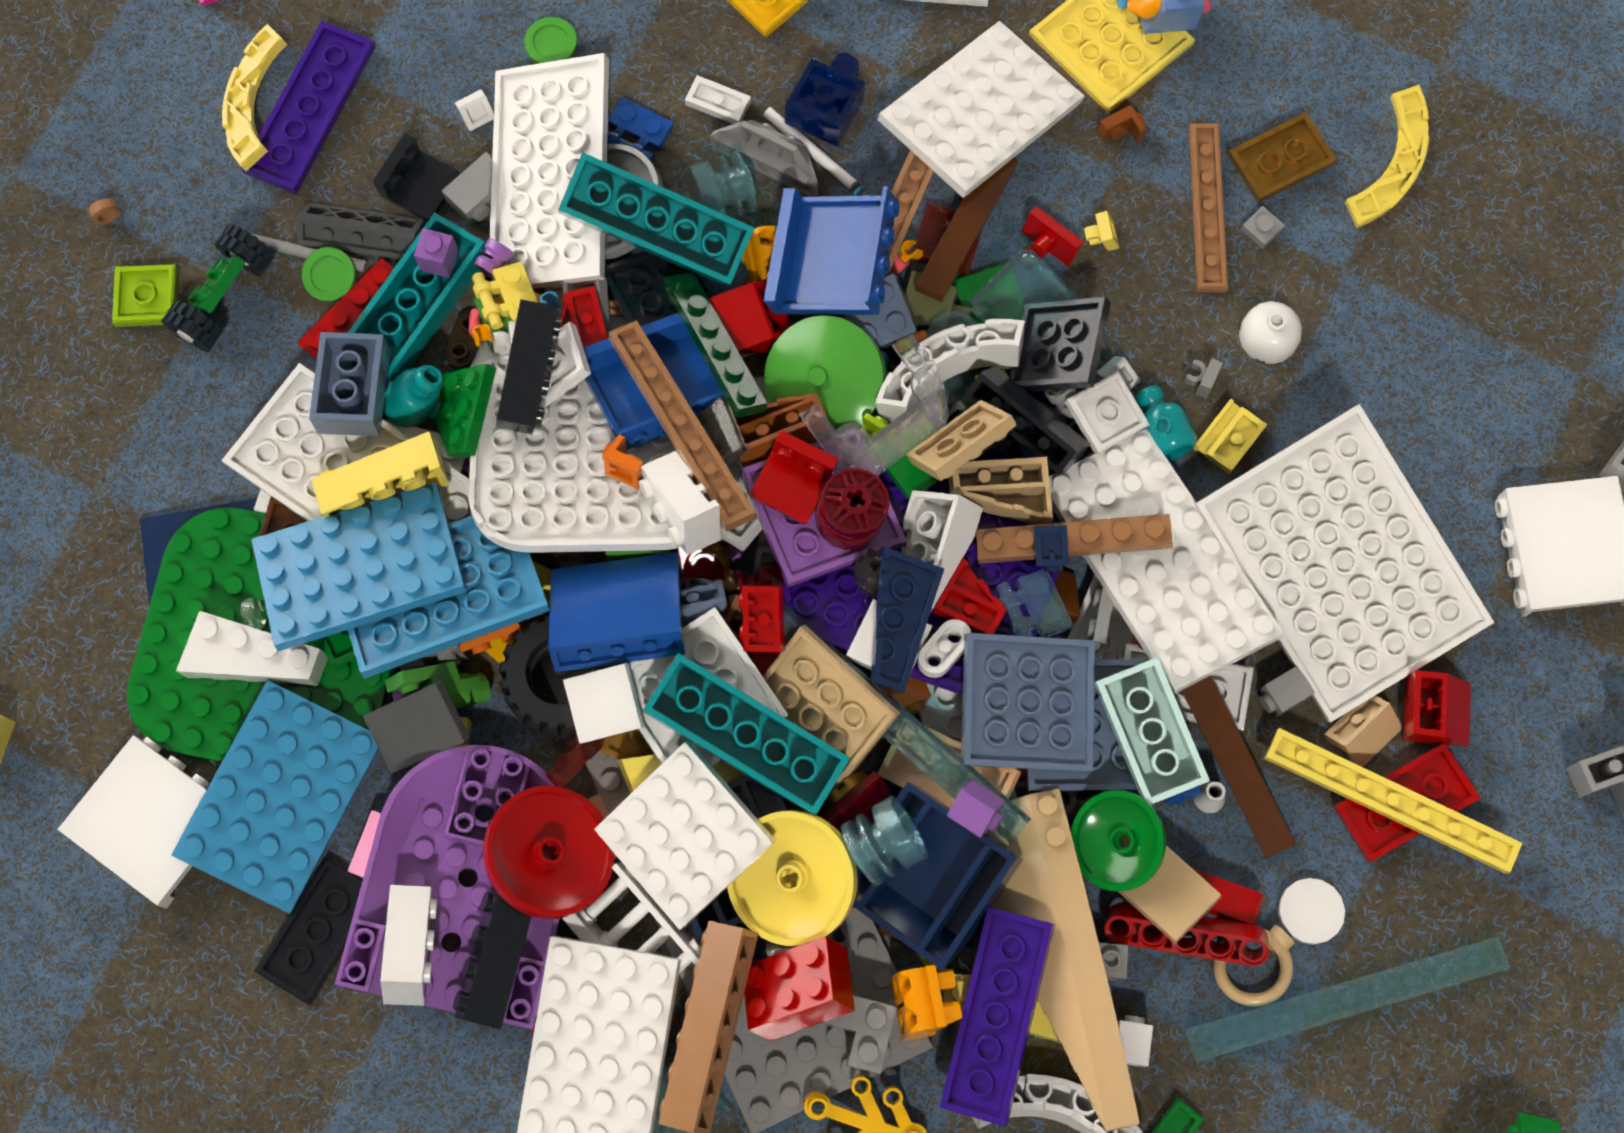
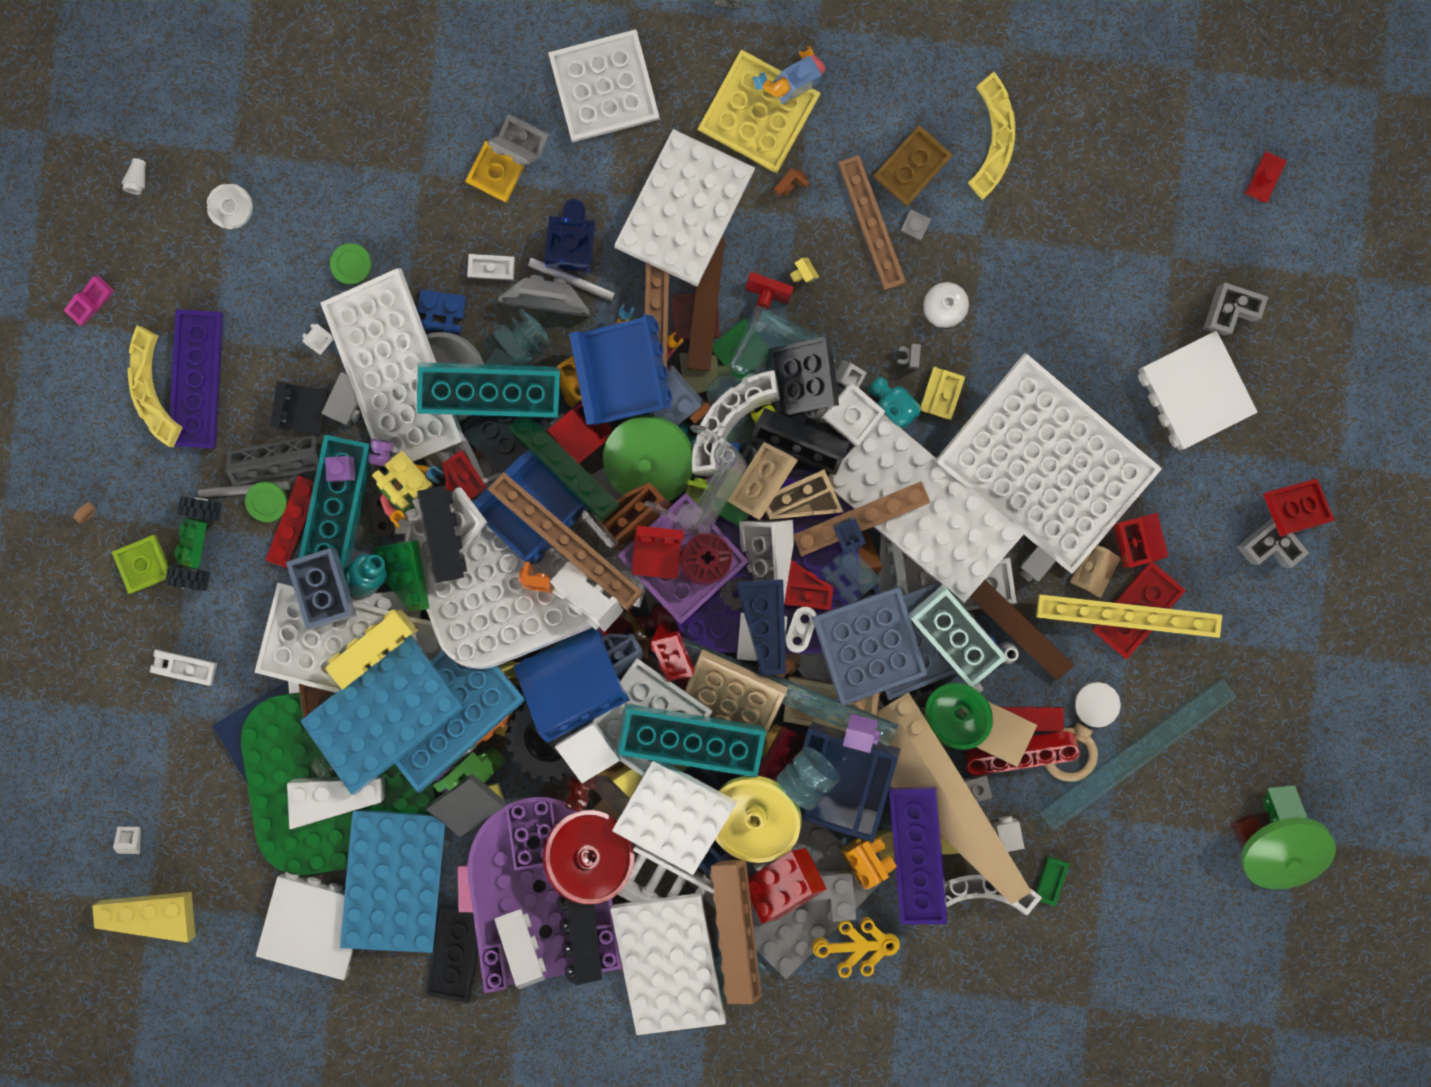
camera: 20 degrees left, 15 degrees up
(138, 436) = (184, 667): none -> white plate

